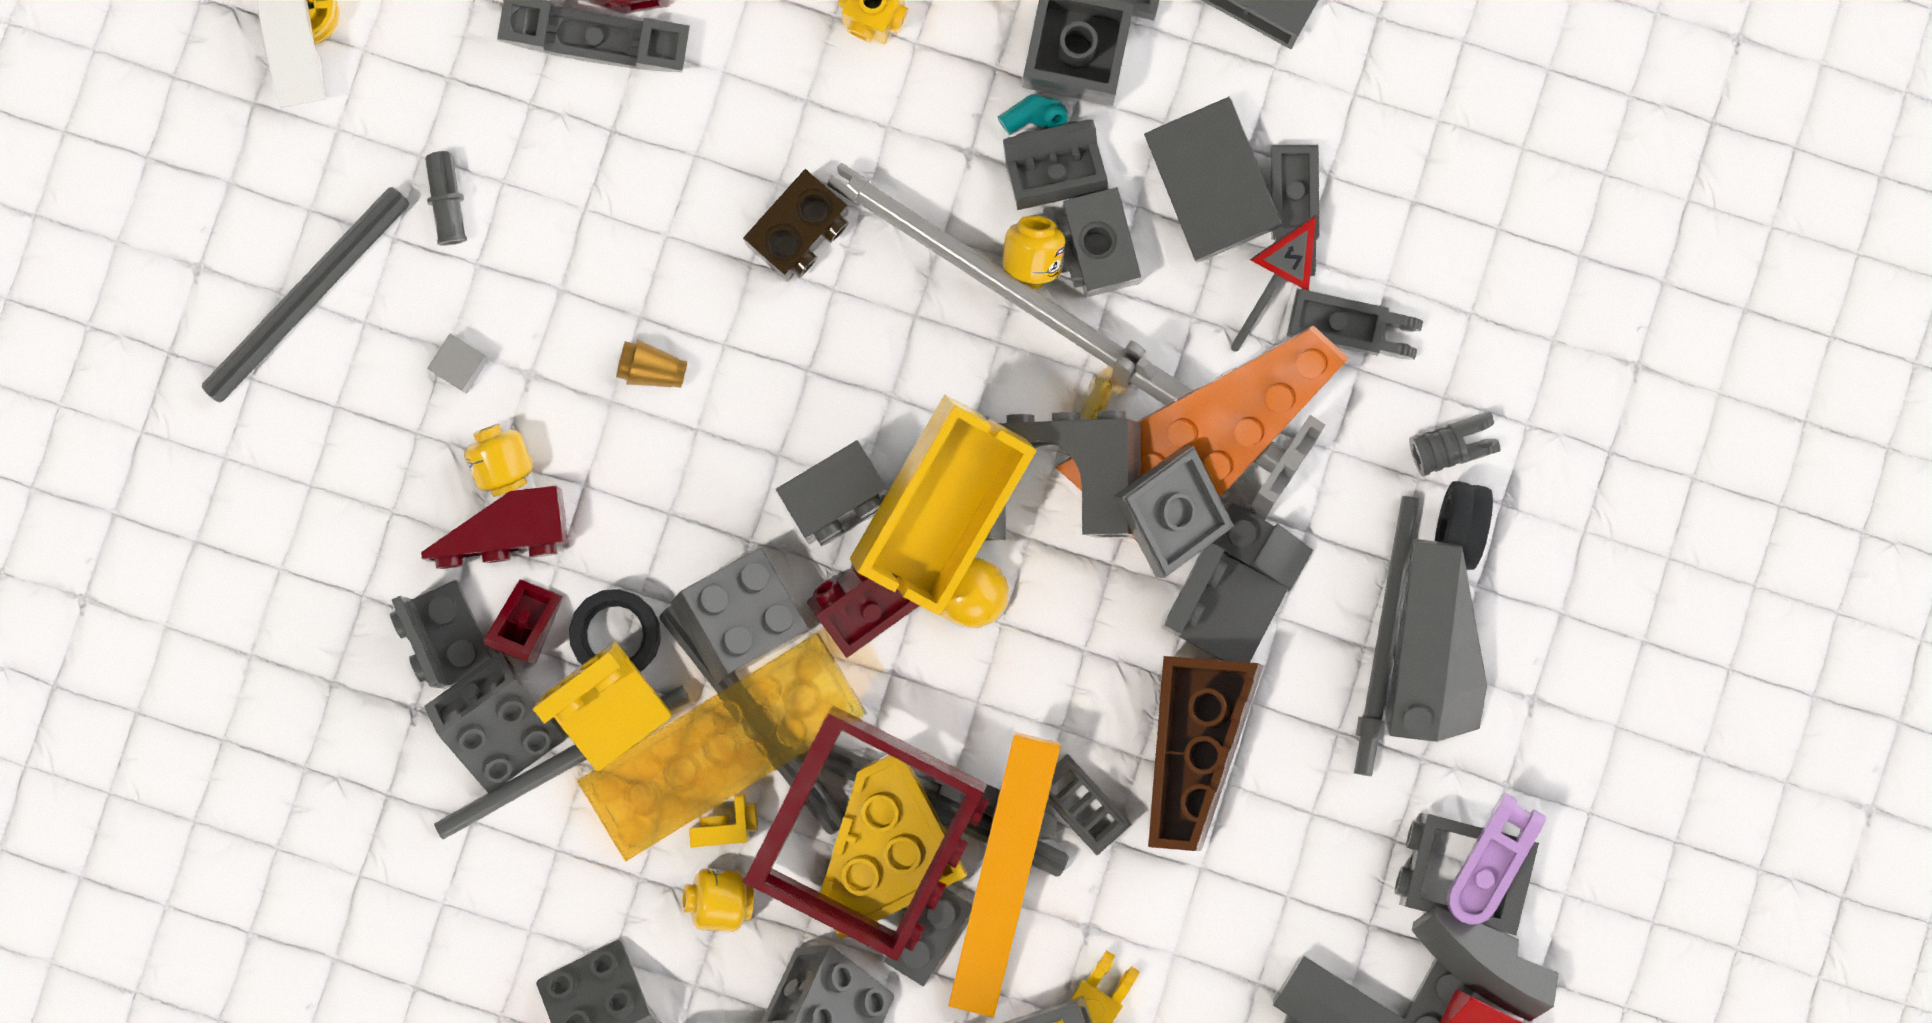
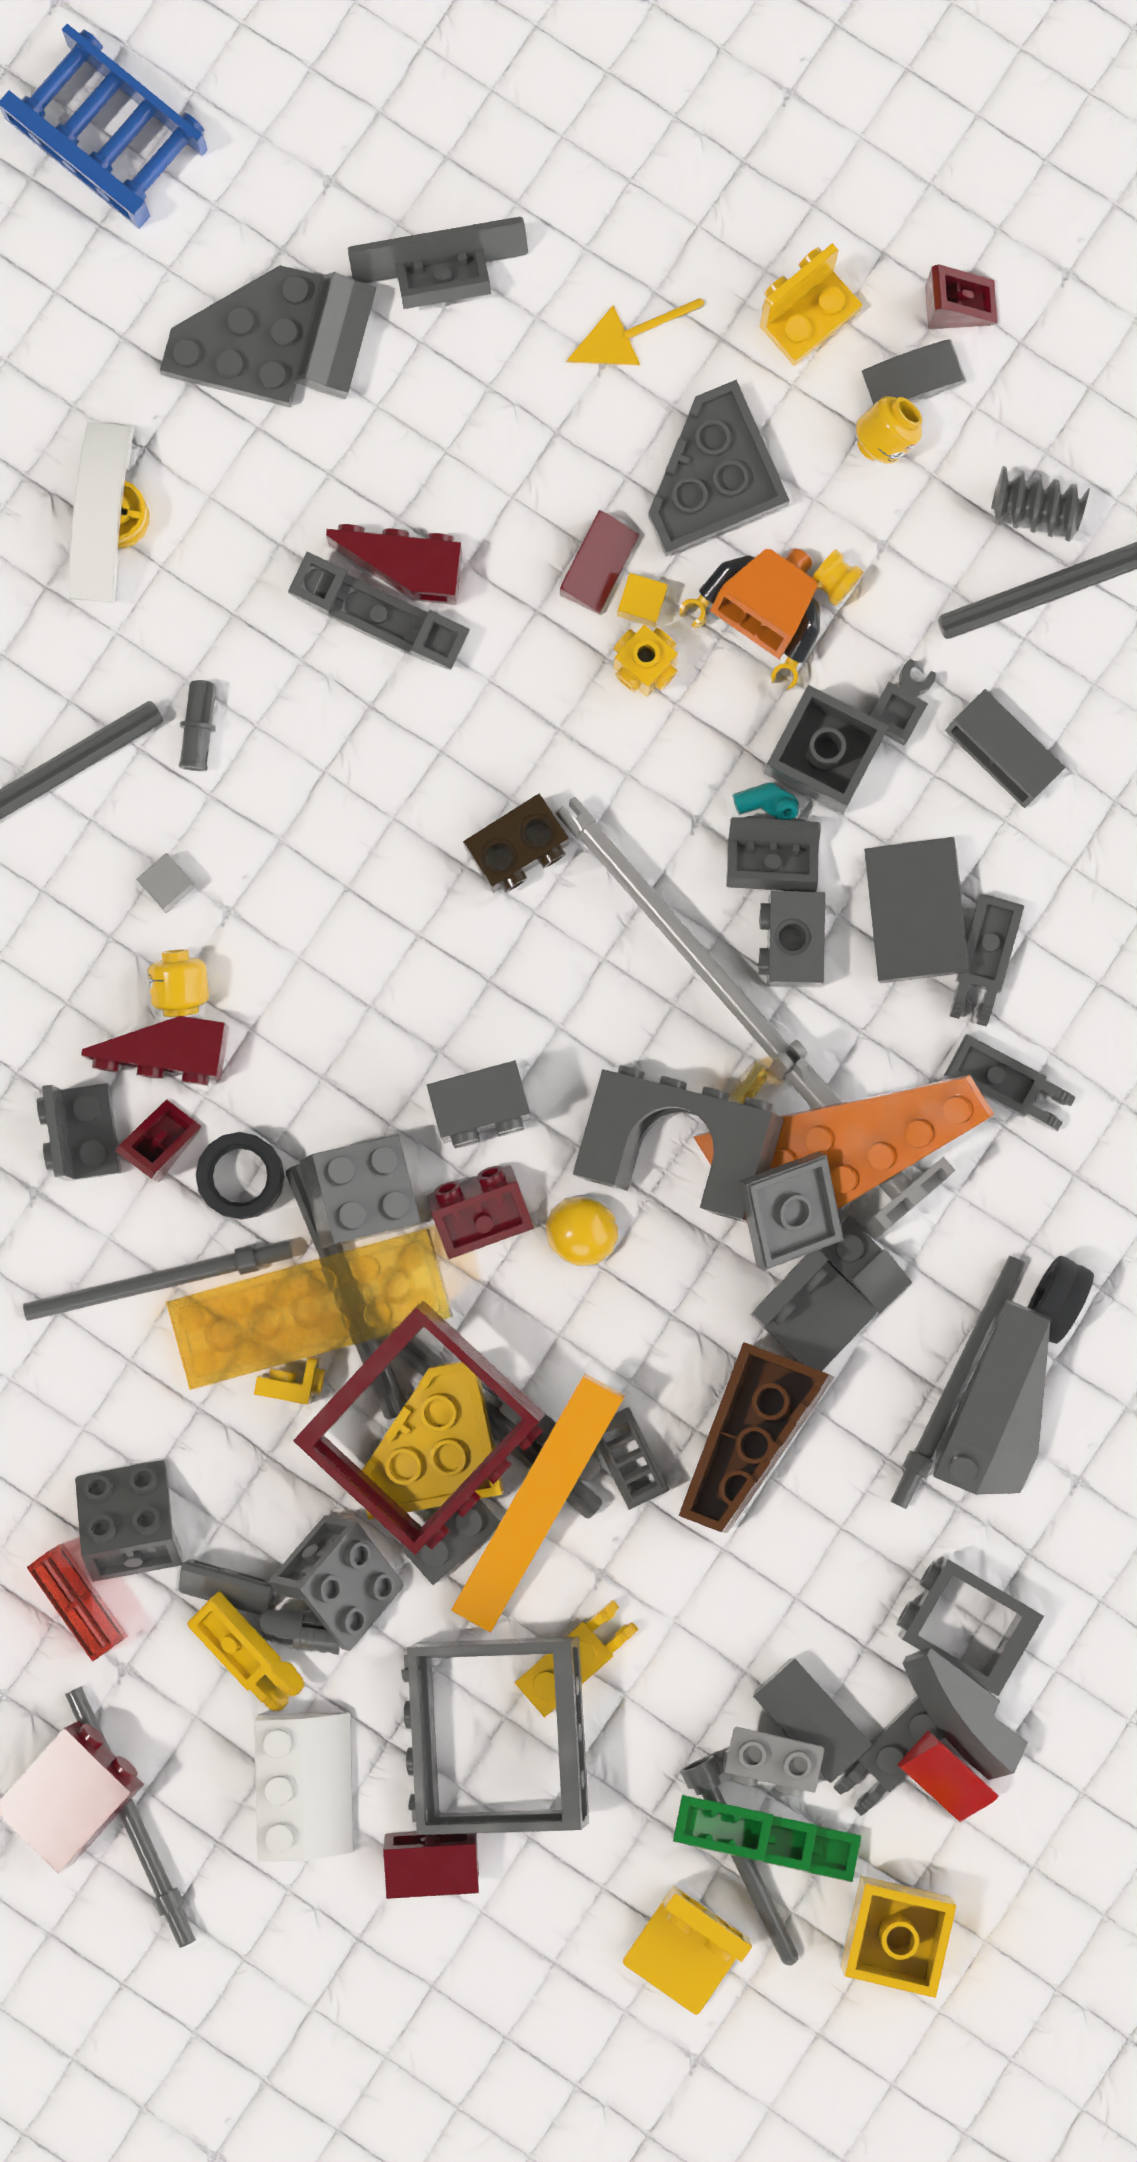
camera: 15 degrees right, 0 degrees up
(492, 723) = (103, 1226): dark grey bracket -> none
(604, 706) = (211, 1240): yellow bracket -> none
(650, 366) = (343, 936): pearl gold cone -> none
(718, 900) = (265, 1450): yellow head -> none
(942, 505) = (577, 1143): yellow piece -> none
(1034, 251) = (730, 930): yellow head -> none
(1287, 259) = (965, 1004): piece -> none
(1447, 445) = (1064, 1221): dark grey hinge -> none
(1493, 862) = (996, 1622): lavender plate -> none

